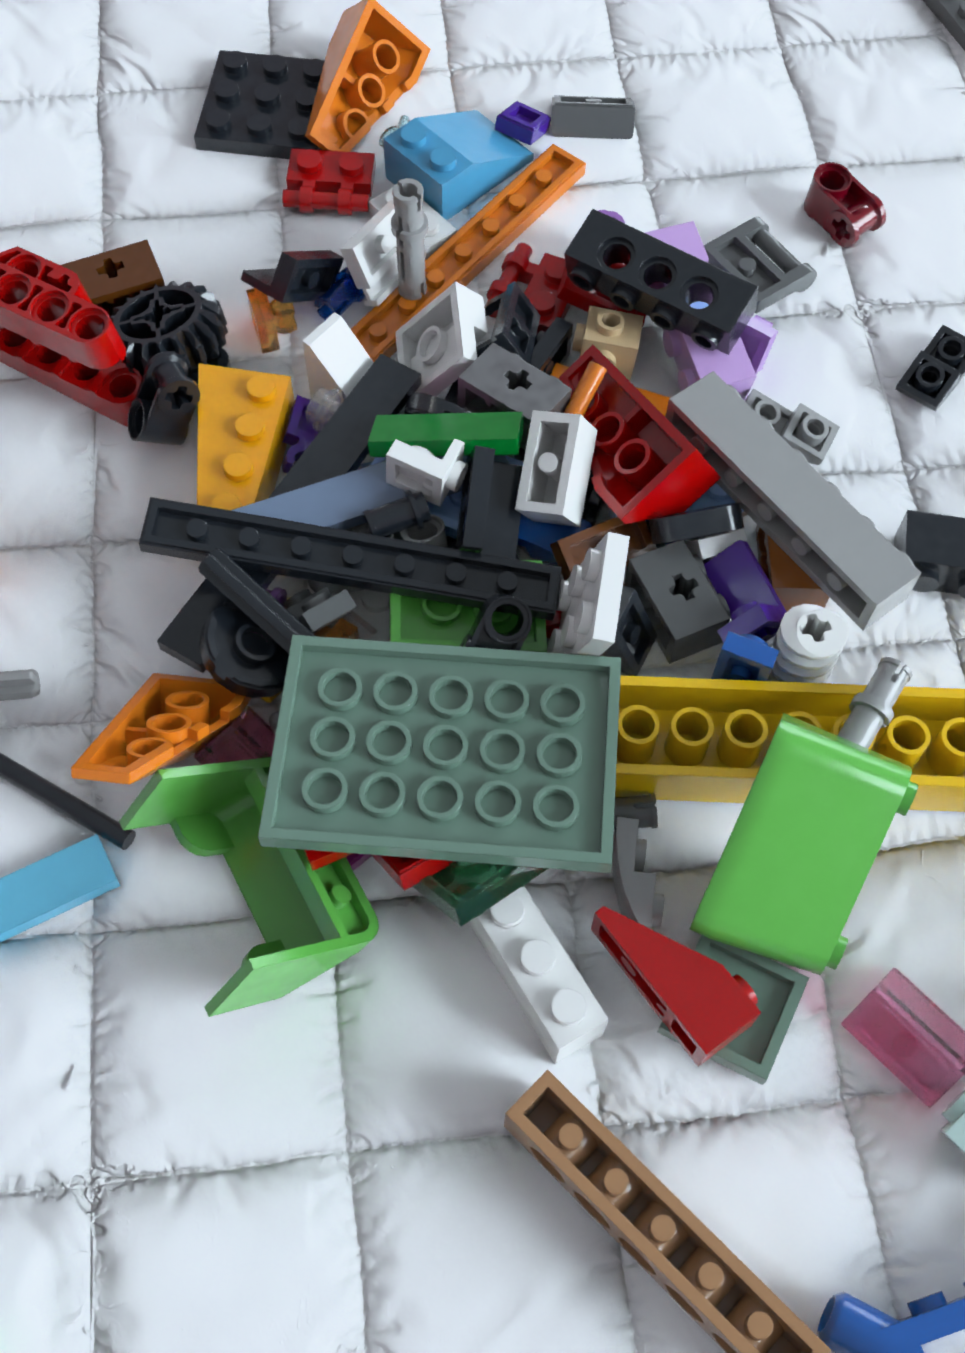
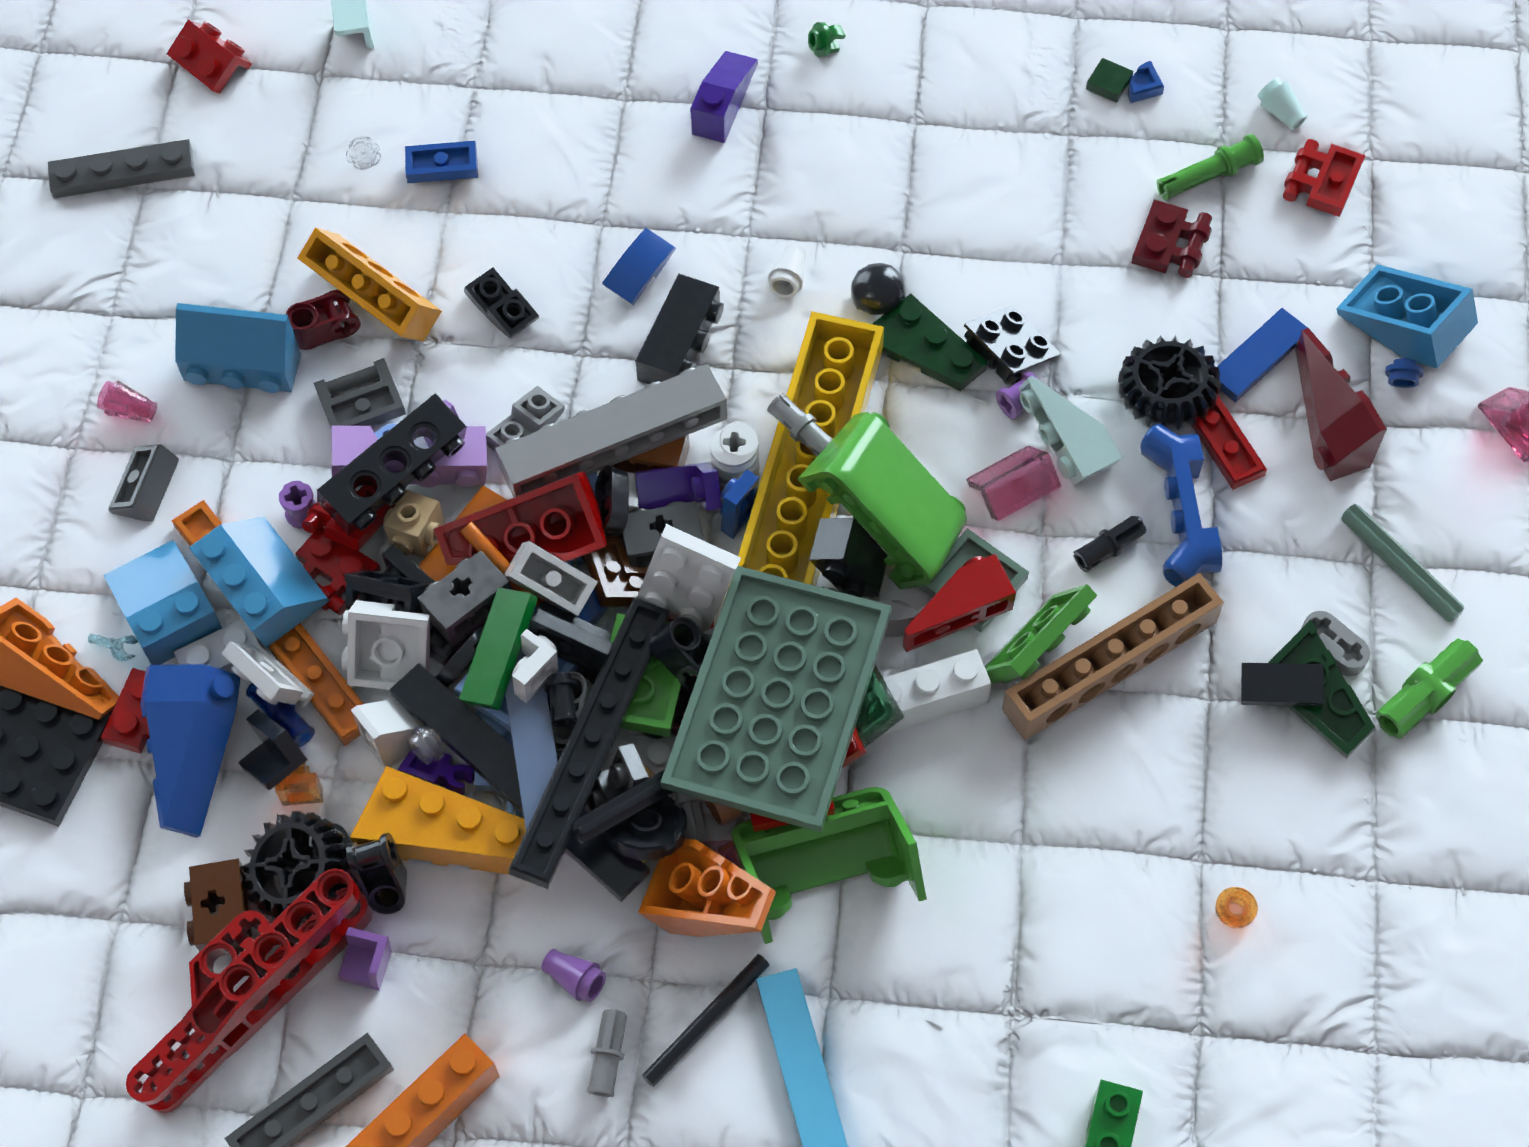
camera: 75 degrees left, 0 degrees up
(74, 427) = (365, 958): none -> medium lavender panel
(78, 633) = (576, 975): none -> medium lavender cone
(300, 204) = (189, 727): none -> blue wedge
(409, 227) = (289, 636): light grey pin -> none
(495, 215) = (259, 577): none -> dark azure slope
(522, 123) = (137, 539): dark purple tile -> none
(659, 1110) = (1040, 634): none -> bright green plate
(677, 70) = (124, 402): none -> clear pink cone
(701, 813) = (848, 557): none -> black brick
(770, 135) = (235, 348): none -> dark azure slope
(859, 1201) = (1109, 543): none -> black axle
(901, 231) = (369, 284): none -> light orange brick

